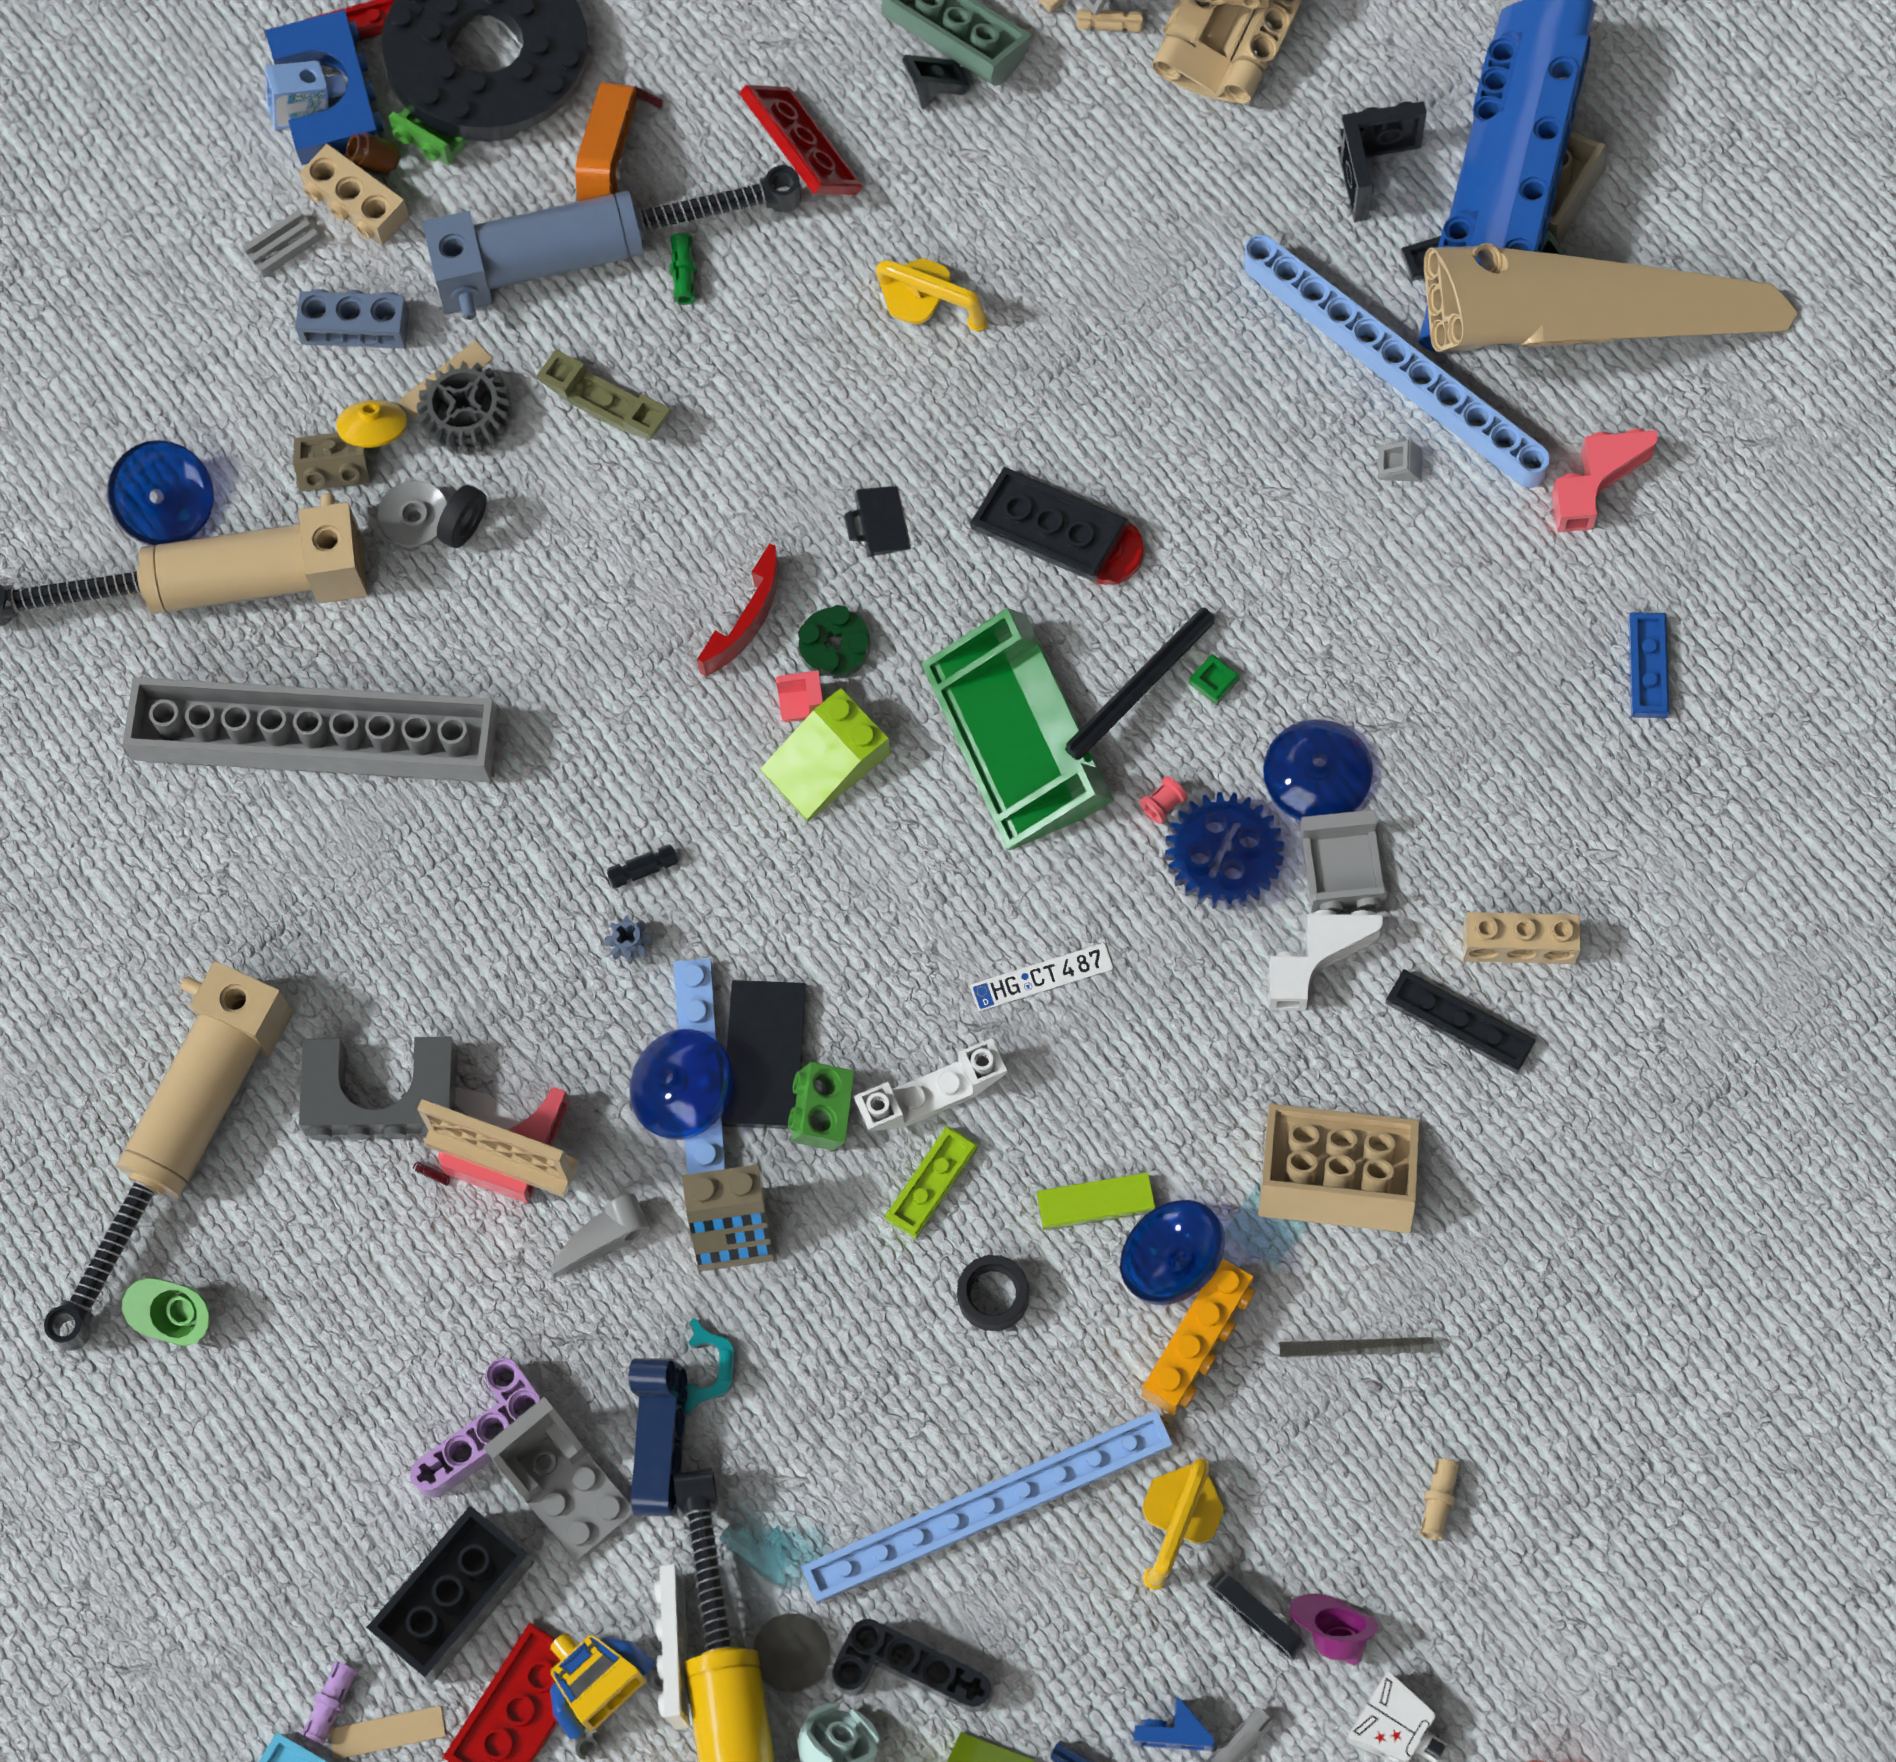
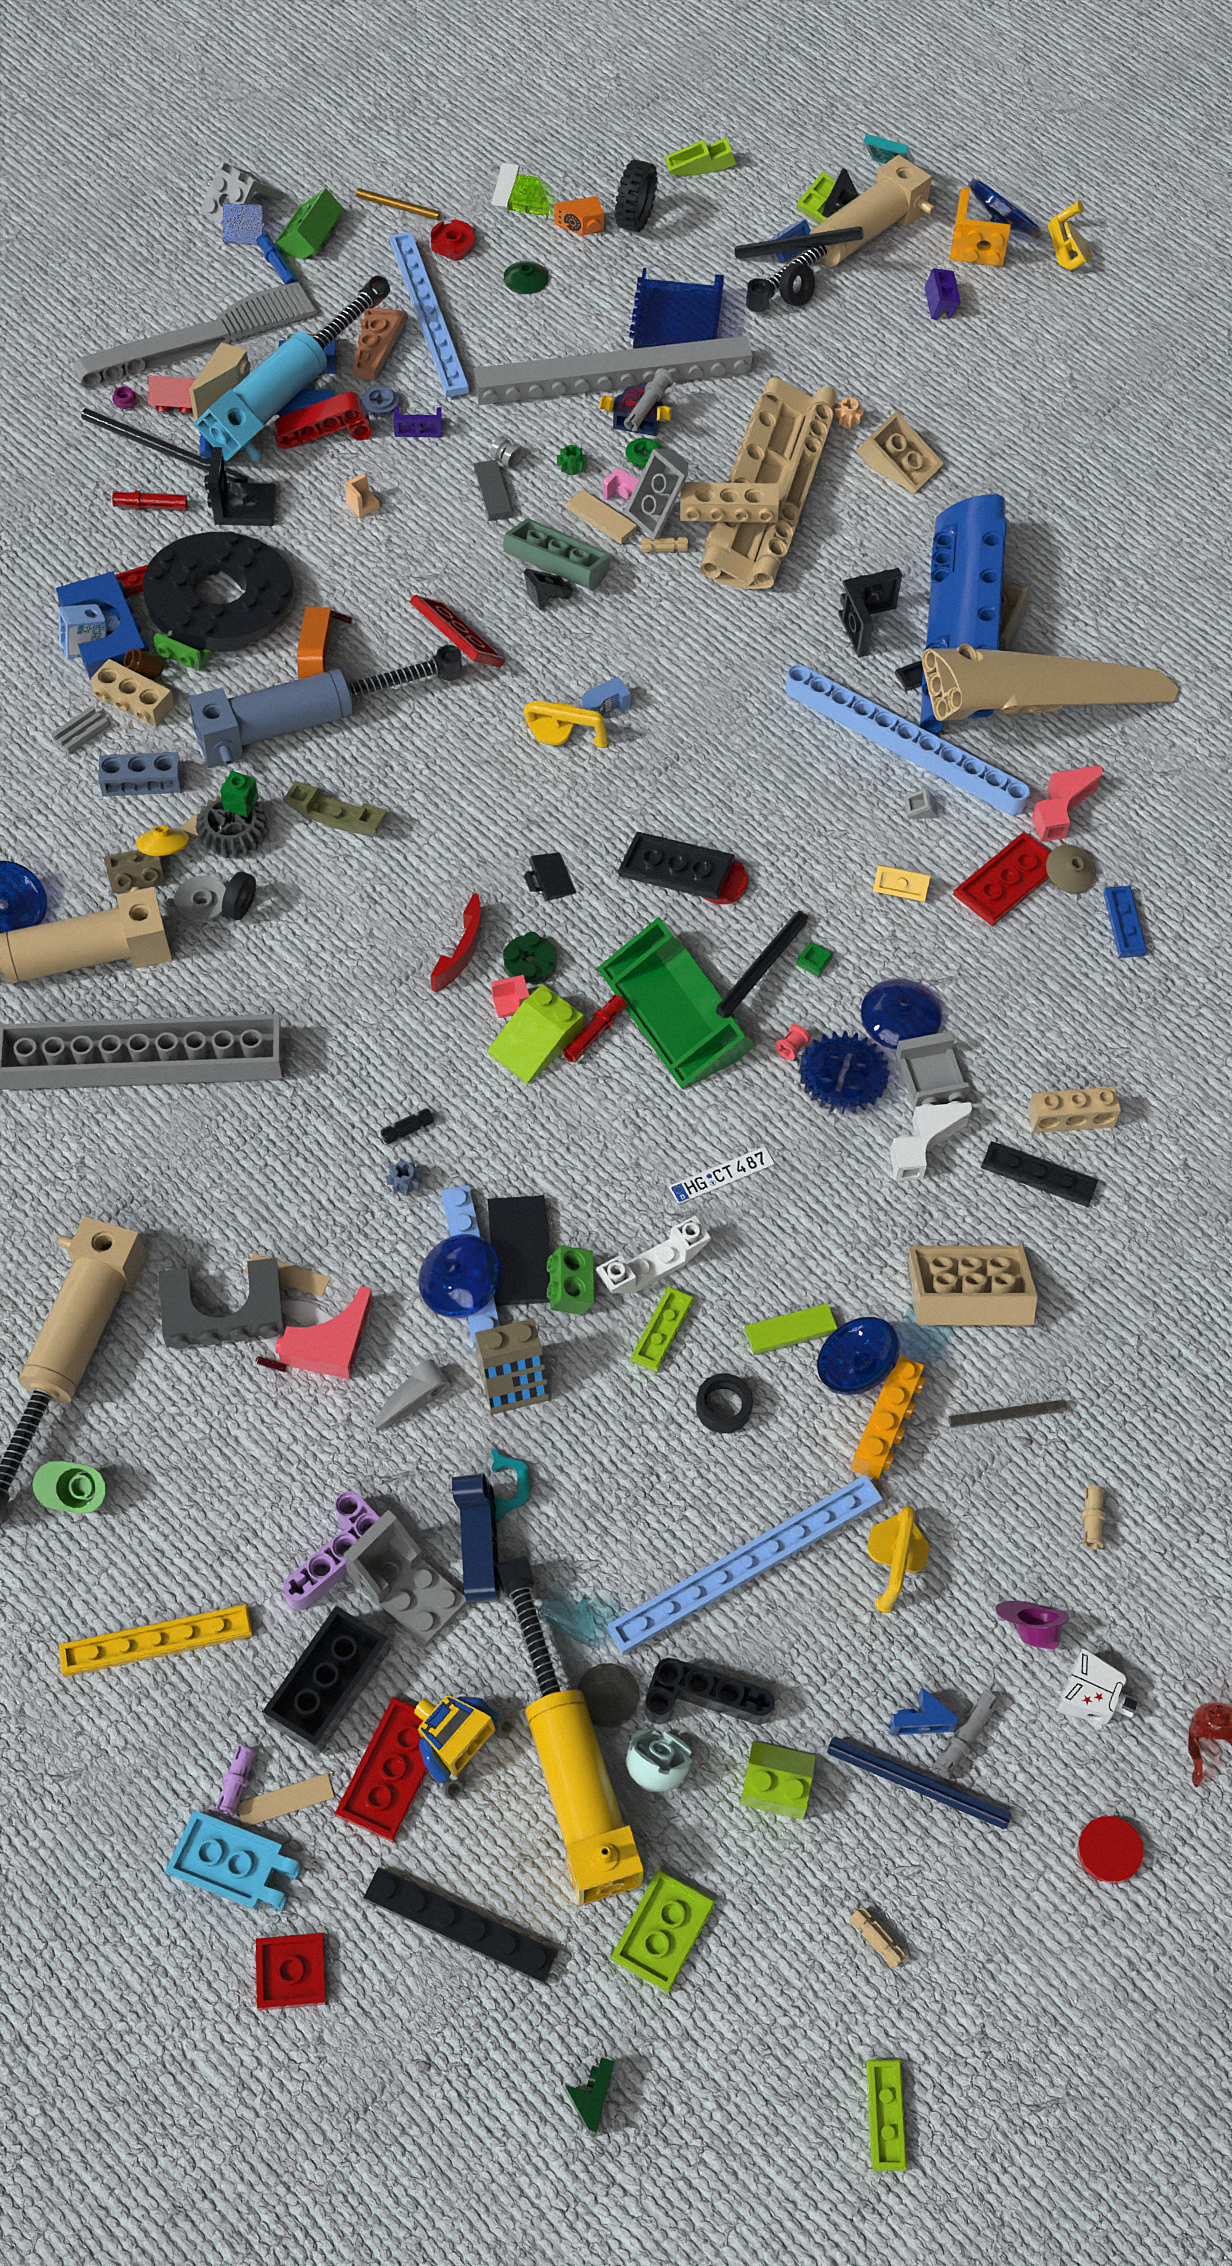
camera: 15 degrees left, 10 degrees down
(253, 1515) = (155, 1640): none -> yellow tile
(475, 371) = (239, 793): none -> green brick
(475, 1057) = (298, 1277): none -> tan sticker
(497, 1149) = (324, 1329): tan fence -> none
(672, 1632) = (514, 1713): white plate -> none
(683, 268) = (381, 722): green pin -> none
(915, 743) = (601, 1020): none -> red pin
(989, 260) = (607, 697): none -> medium blue leg
(1256, 1615) = (970, 1620): black beam -> none
(1350, 579) = (901, 883): none -> yellow plate
(1499, 584) = (1005, 879): none -> red tile
(1577, 590) = (1064, 874): none -> dark tan dish

